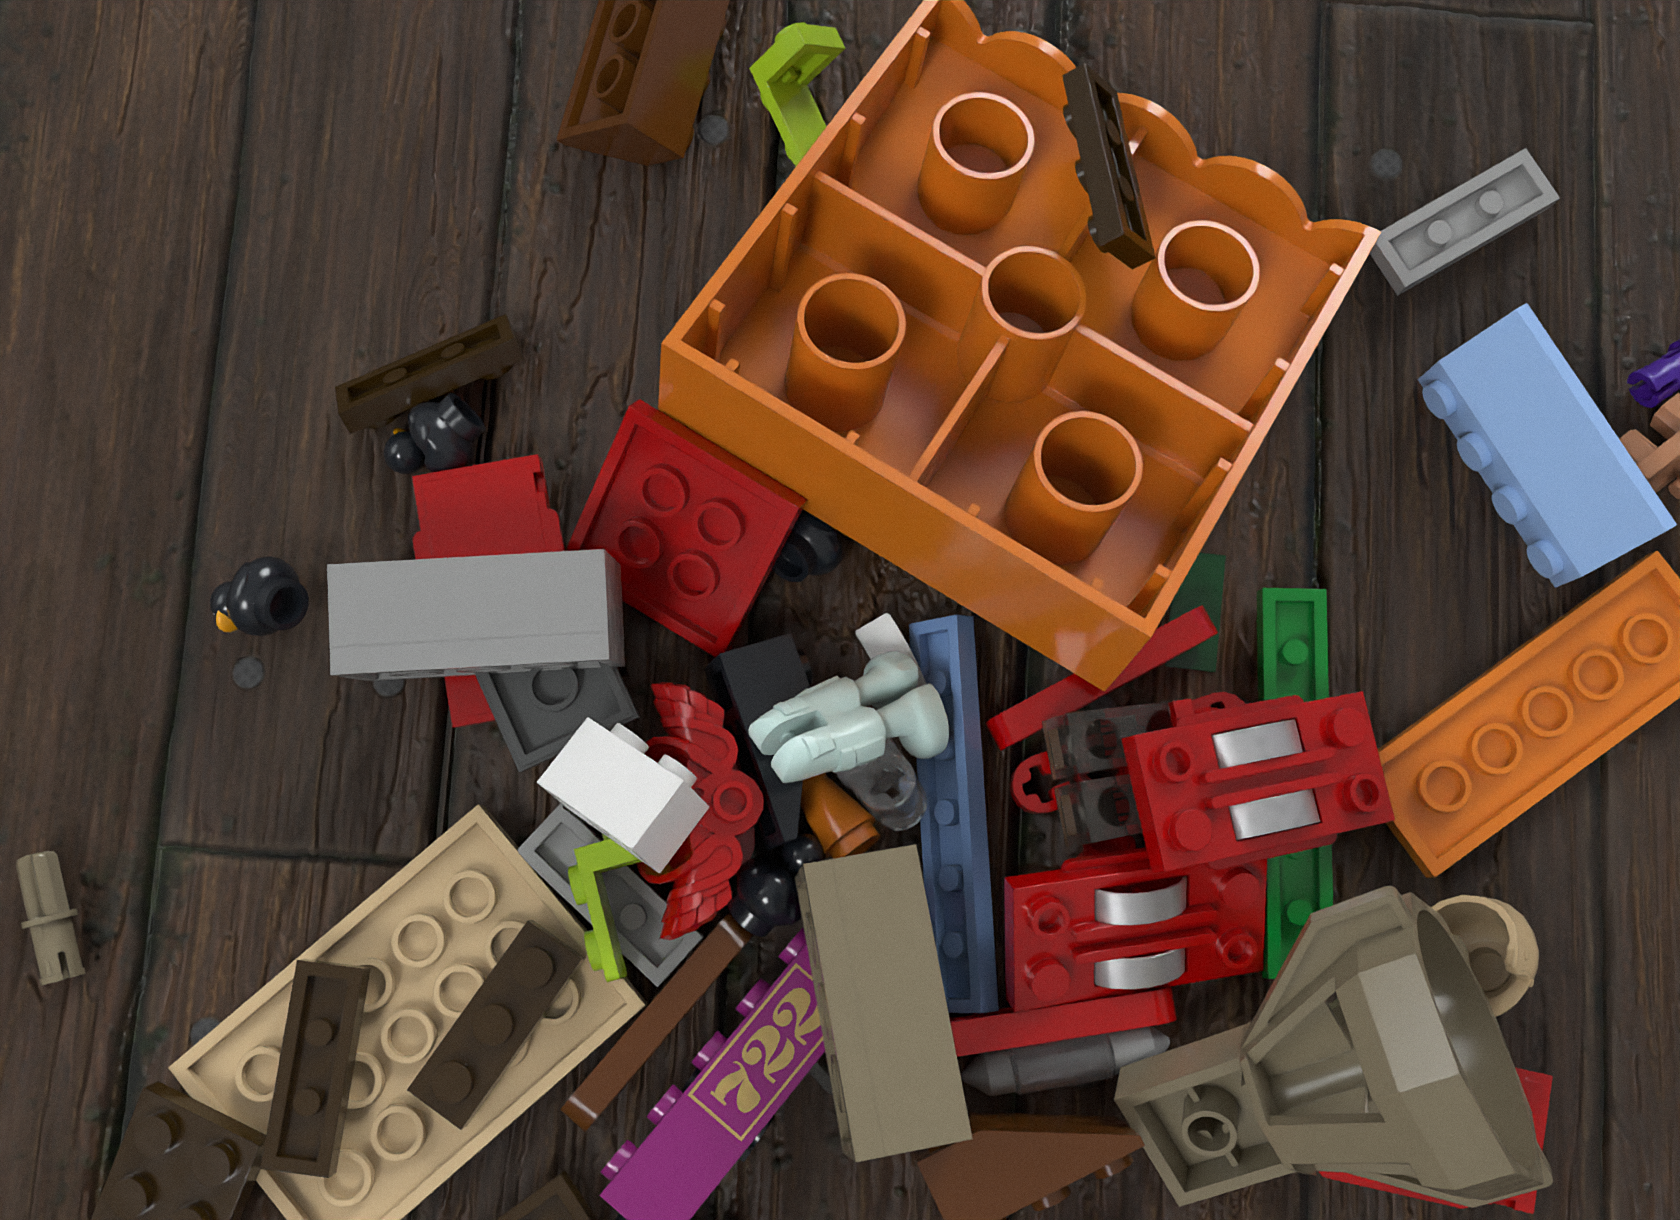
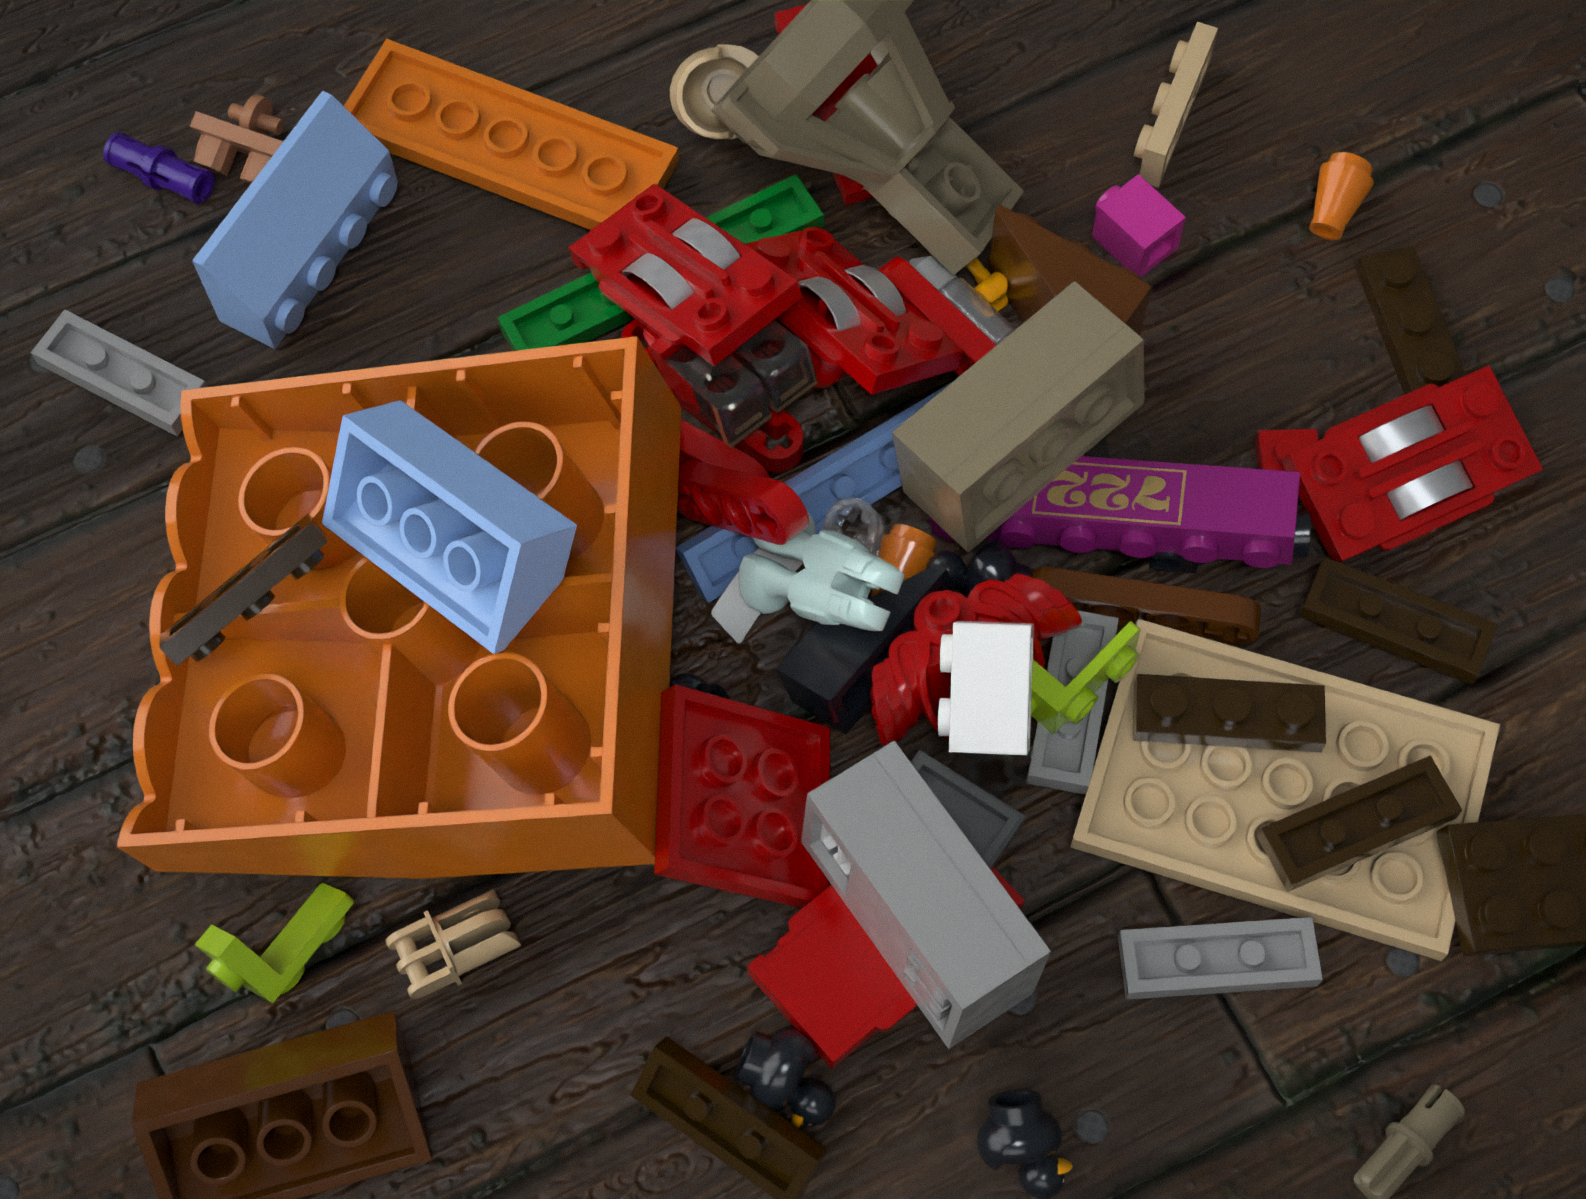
camera: 120 degrees left, 15 degrees down
(300, 867) = (1219, 958): none -> light grey plate
(713, 227) = (464, 938): none -> tan arm
(962, 682) = (740, 502): none -> red beam
(1055, 357) = (445, 522): none -> light blue slope
(1087, 1101) = (989, 286): none -> light orange hand

